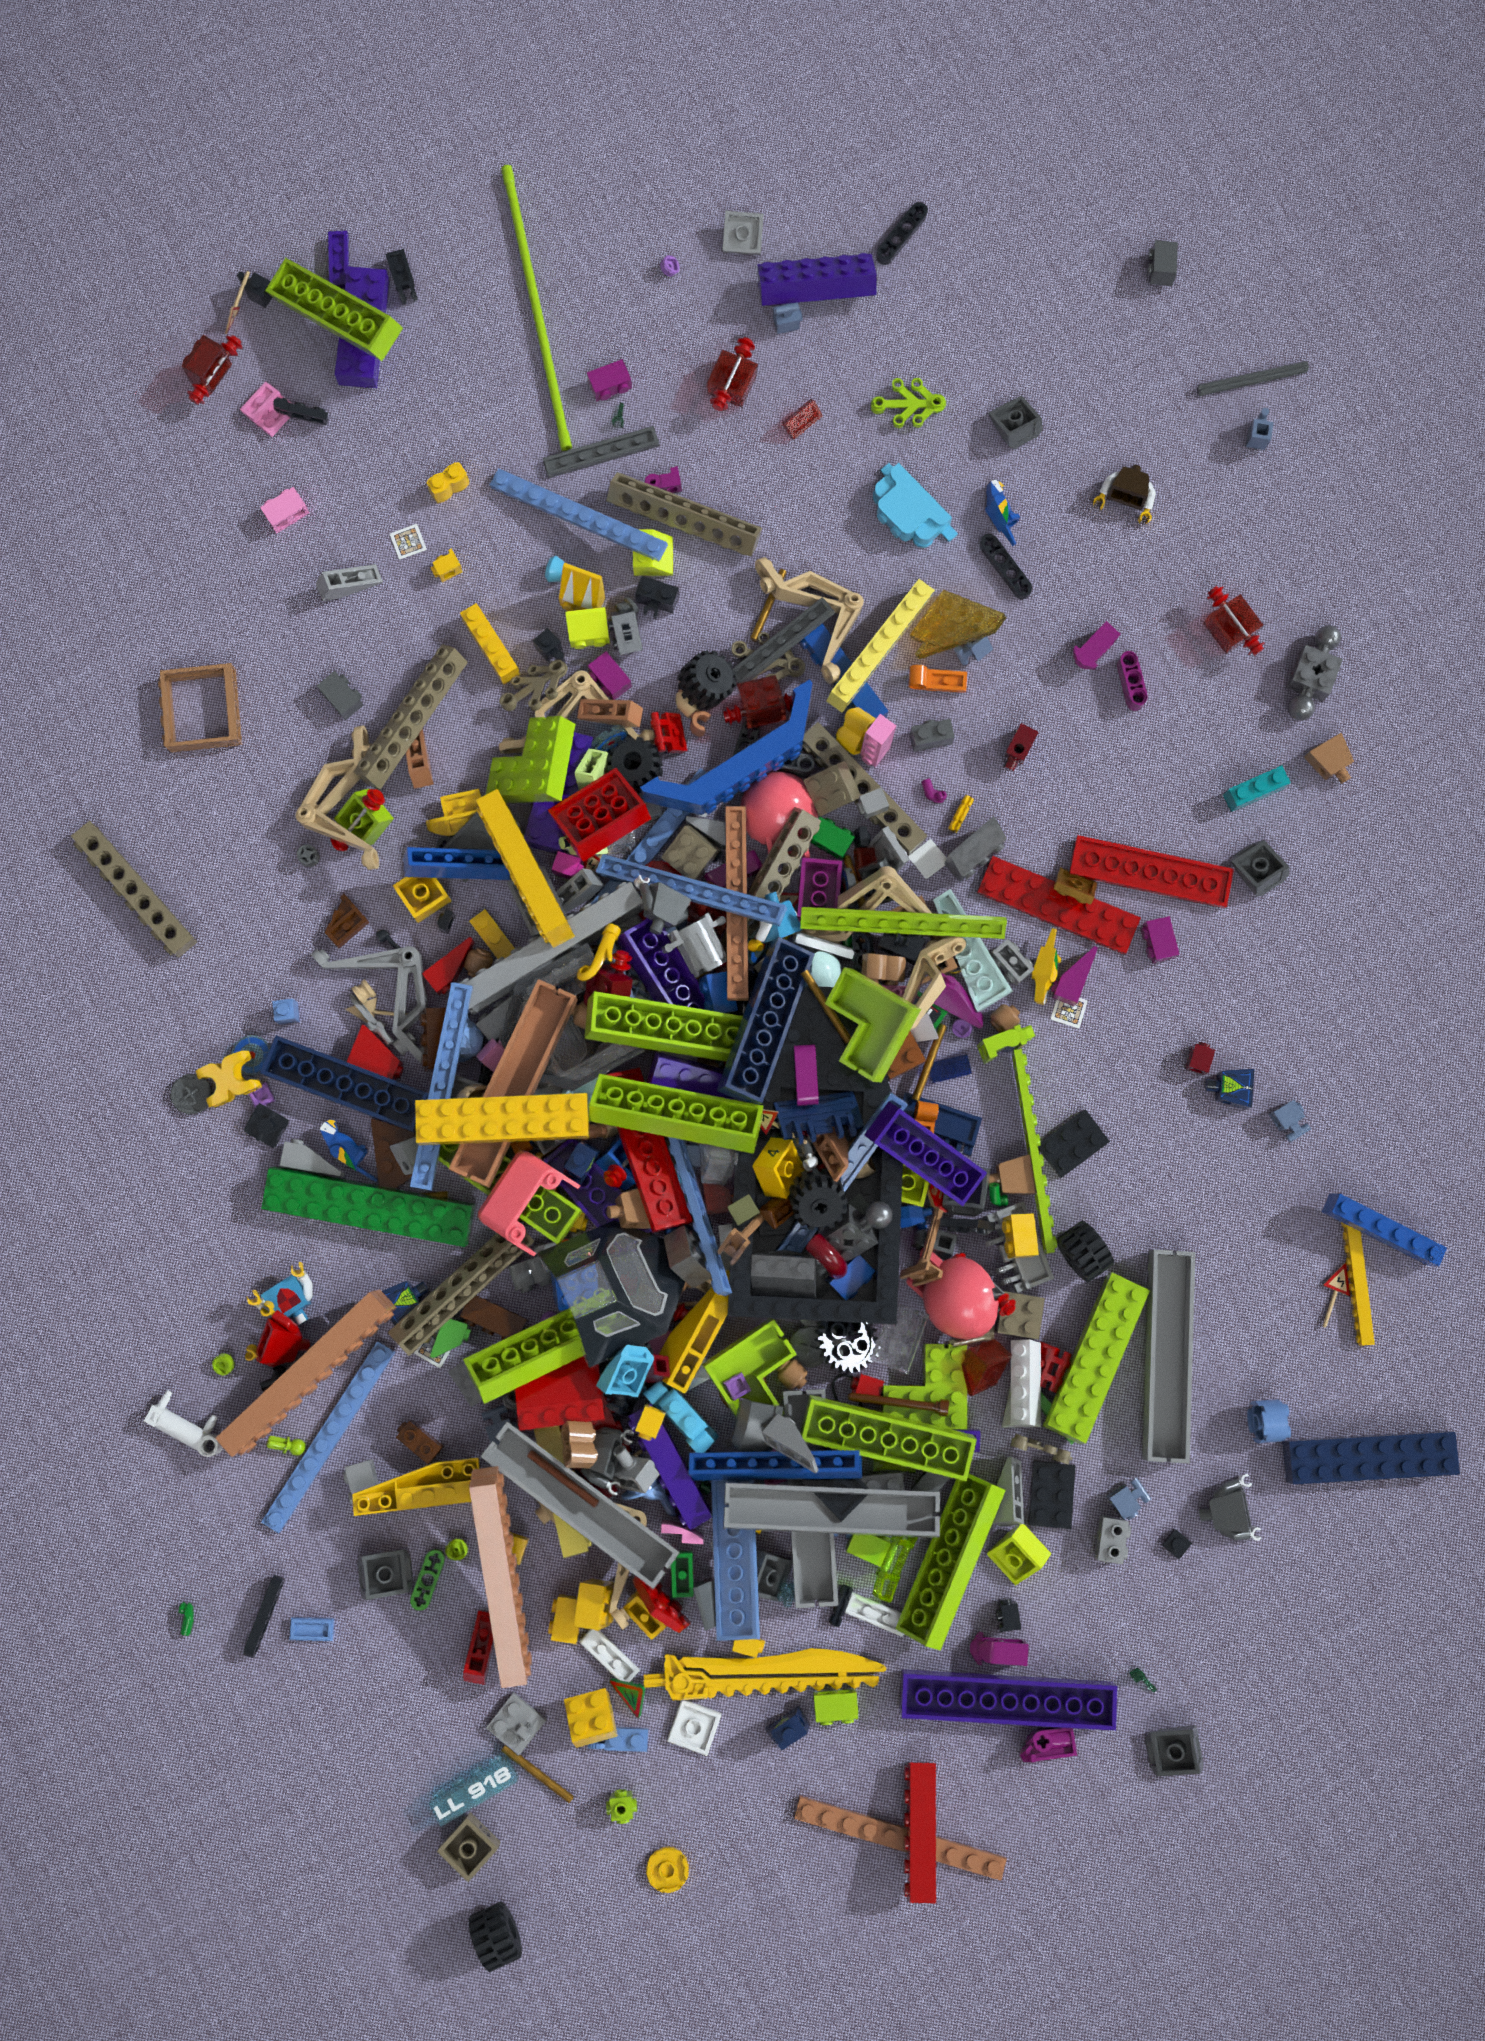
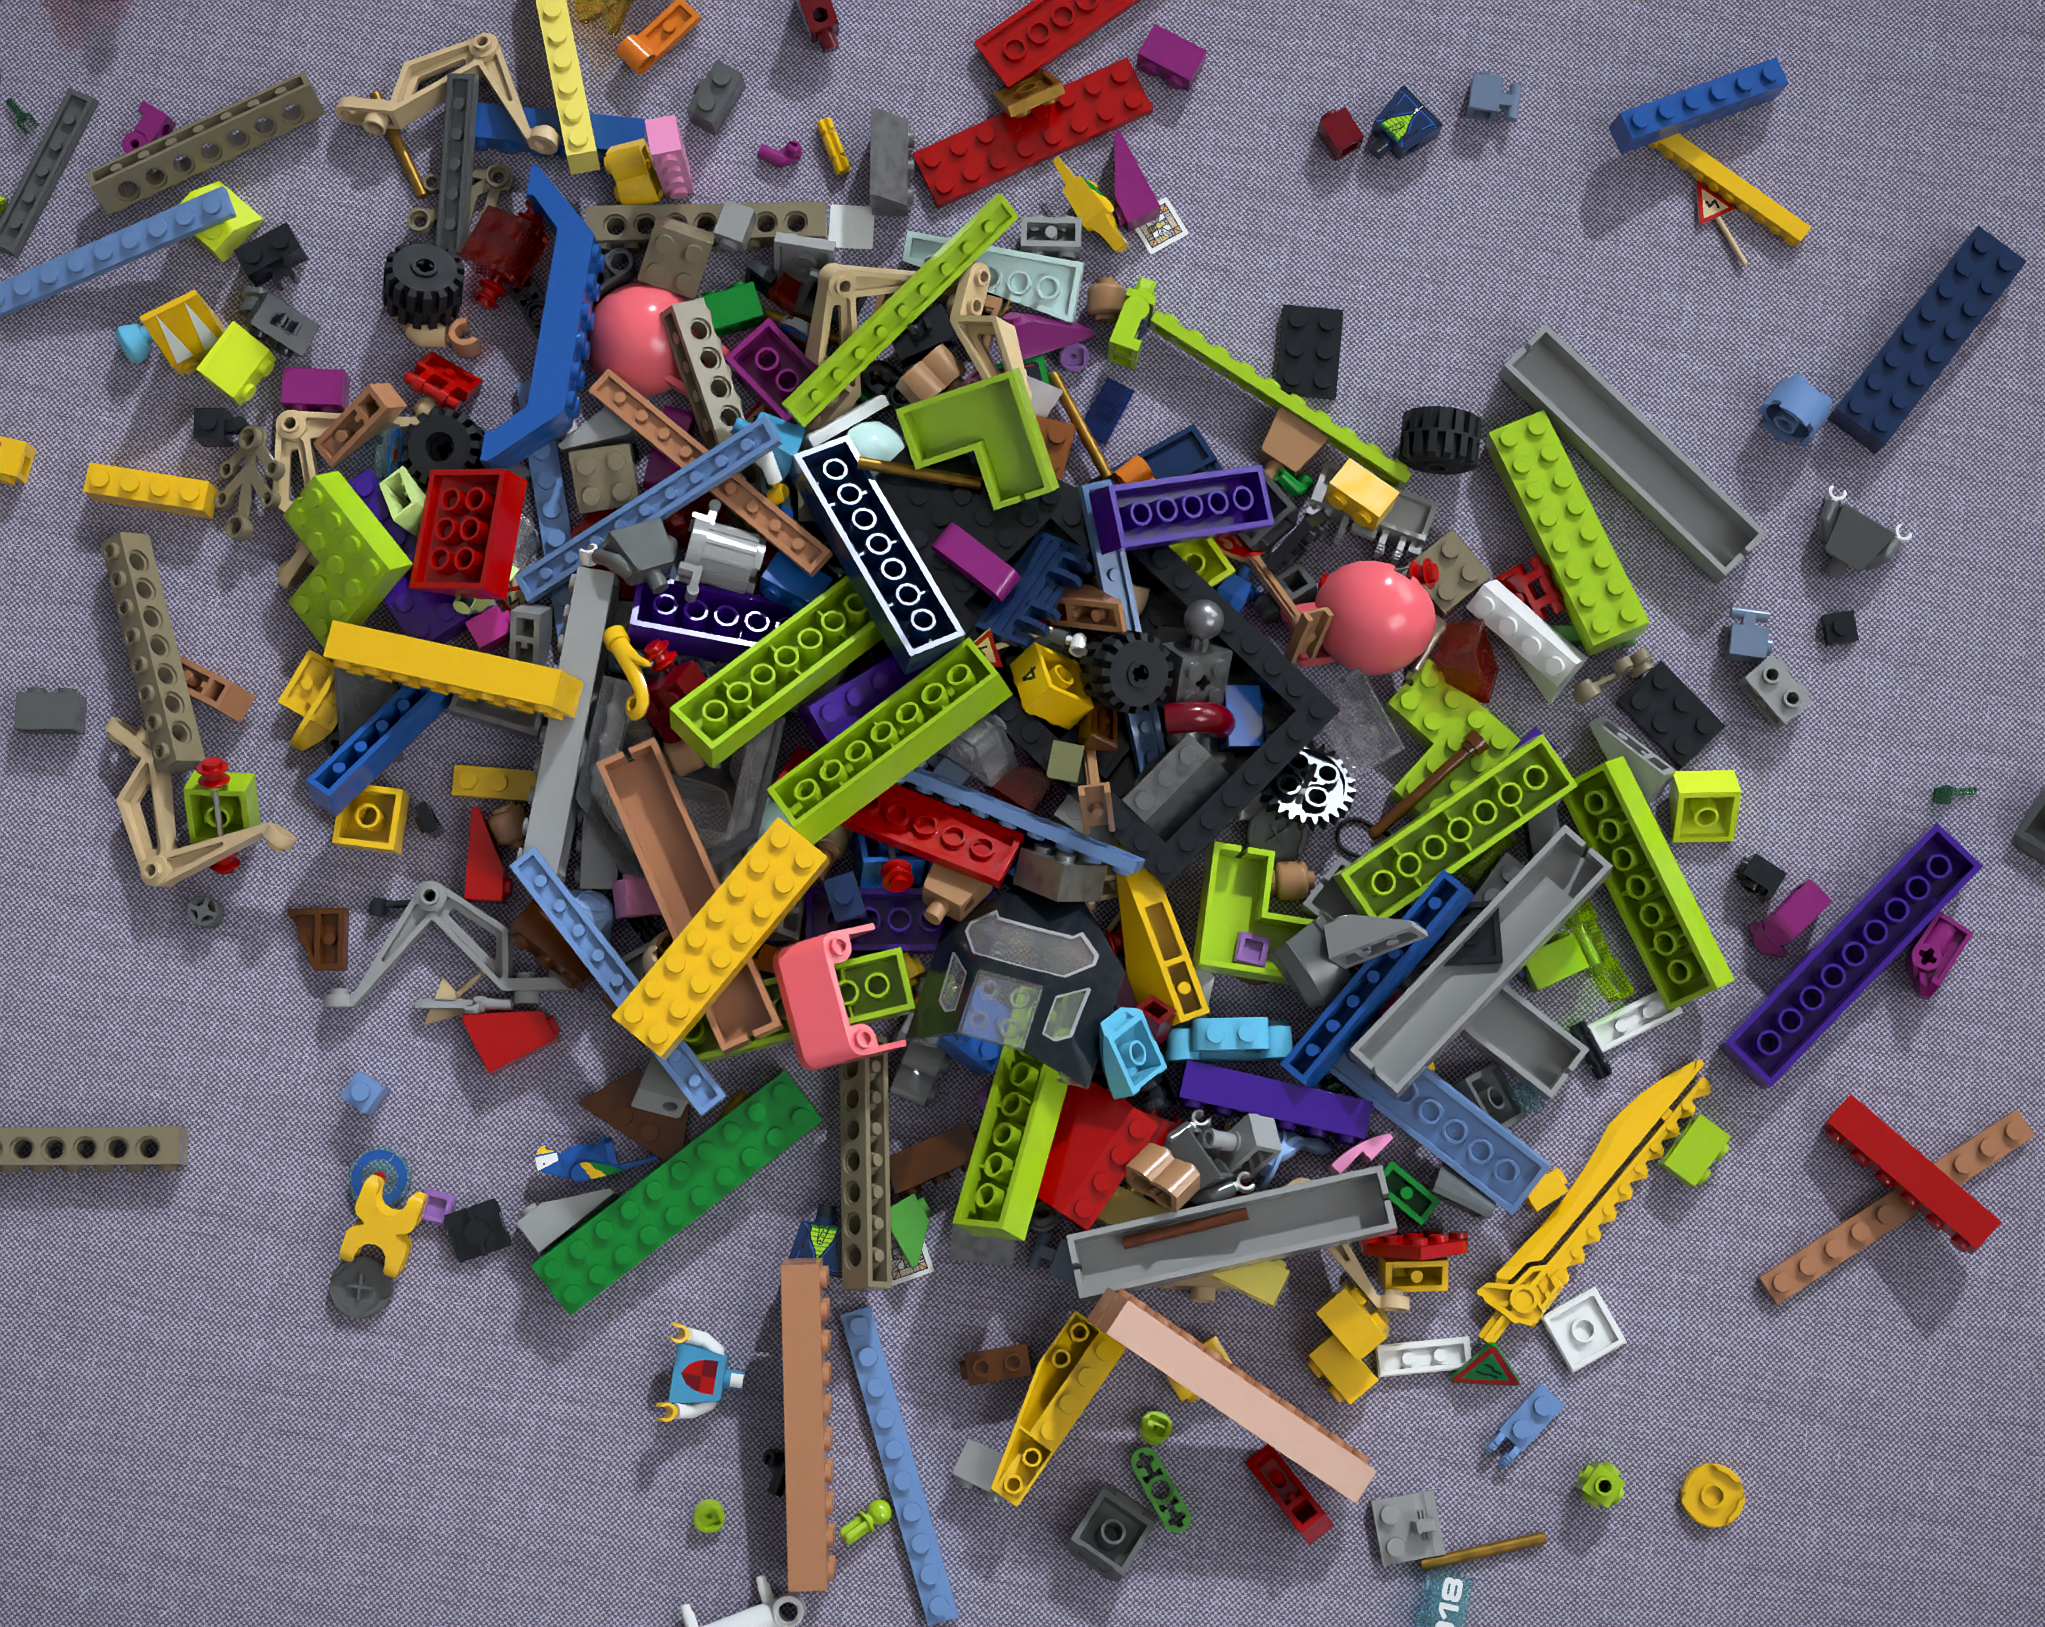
camera: 45 degrees left, 0 degrees up
(279, 1339) = (739, 1425): red torso -> none
(342, 1083) = (512, 1096): dark blue brick -> none
(363, 991) = (424, 984): tan wheel -> none
(590, 1717) = (1474, 1434): yellow brick -> none
(650, 1422) = (1209, 1074): yellow brick -> none
(788, 1728) = (1675, 1226): dark blue torso -> none
(866, 1385) = (1374, 807): red brick -> none

